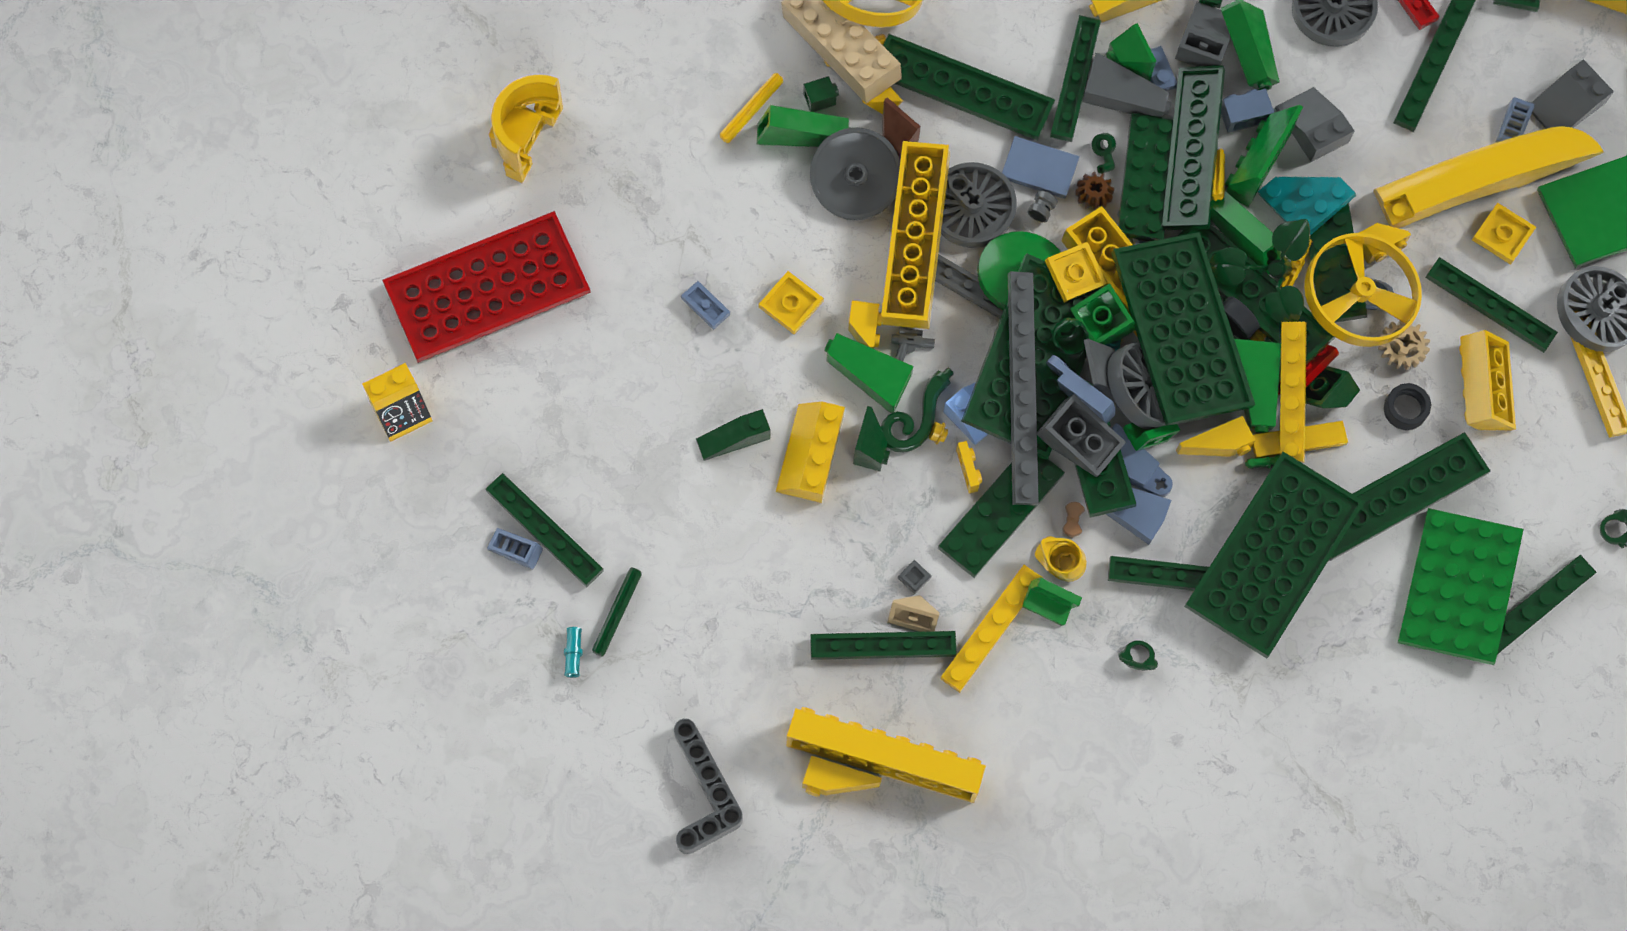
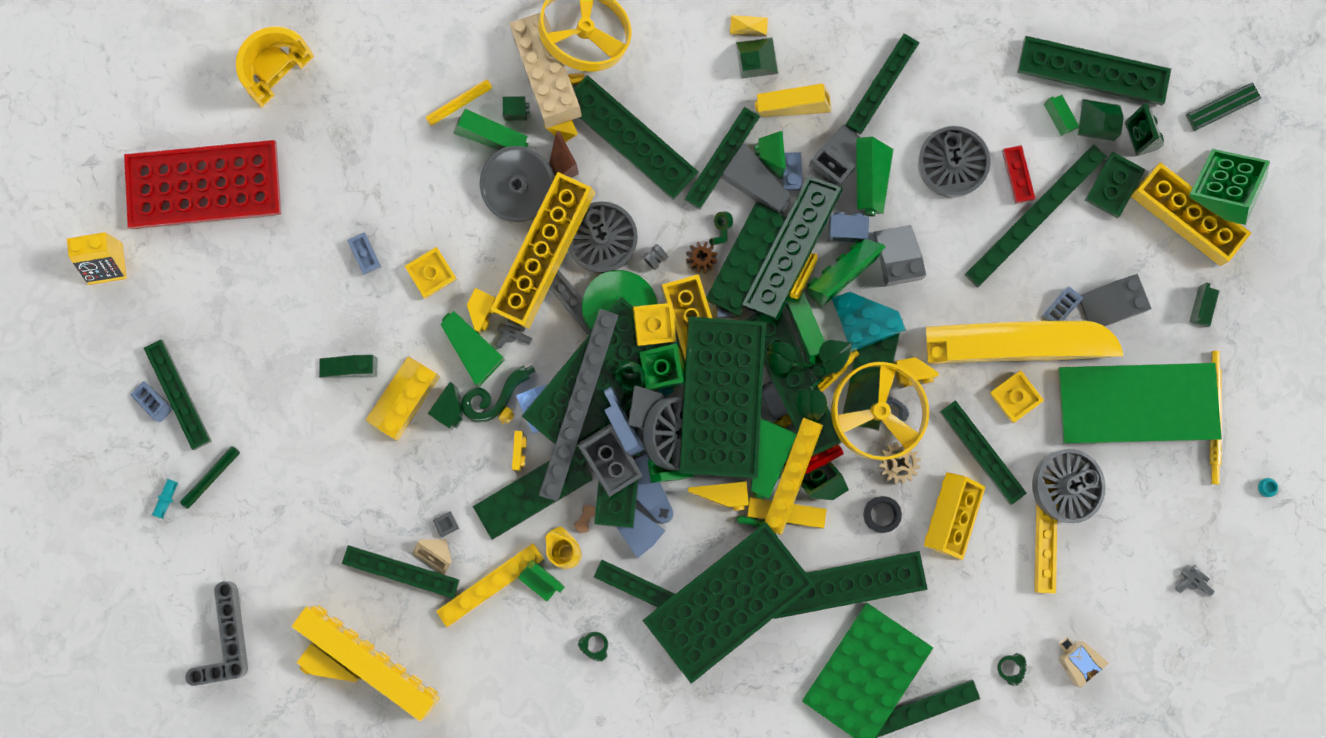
camera: 20 degrees right, 10 degrees up
(1040, 167) = (667, 223): sand blue tile -> none

